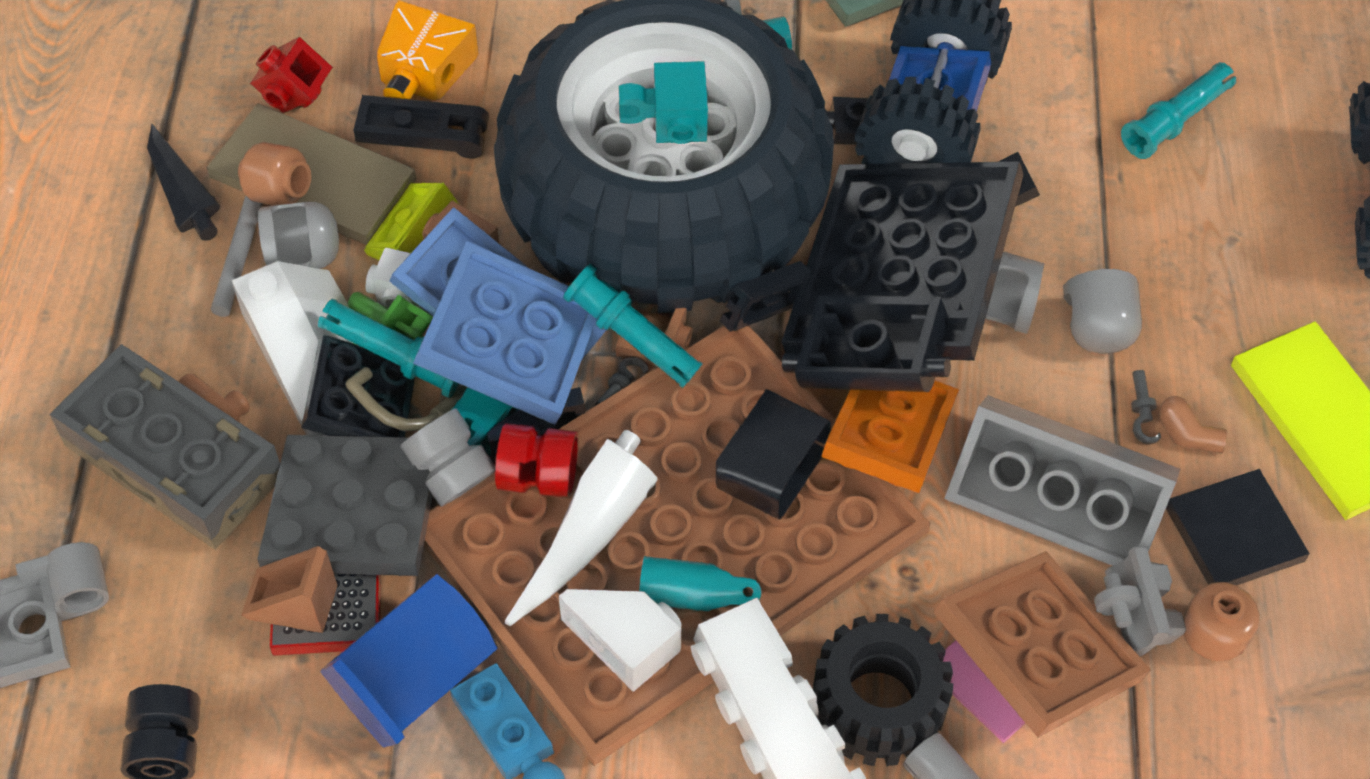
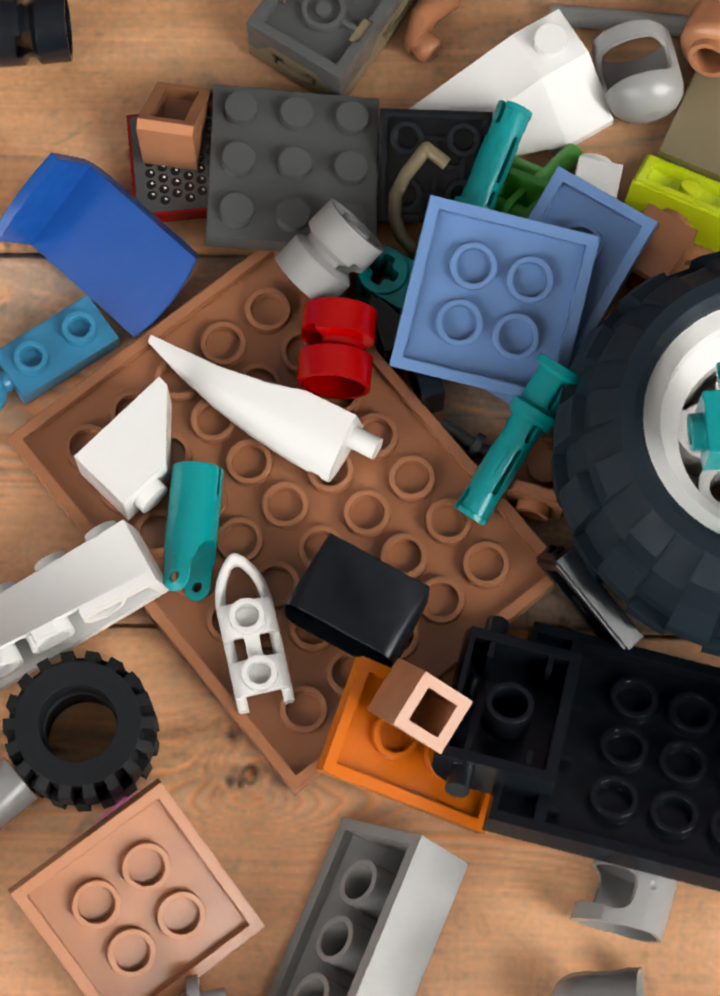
camera: 90 degrees right, 15 degrees up
(786, 542) = (247, 621): none -> white piece
(875, 391) = (419, 705): none -> nougat brick

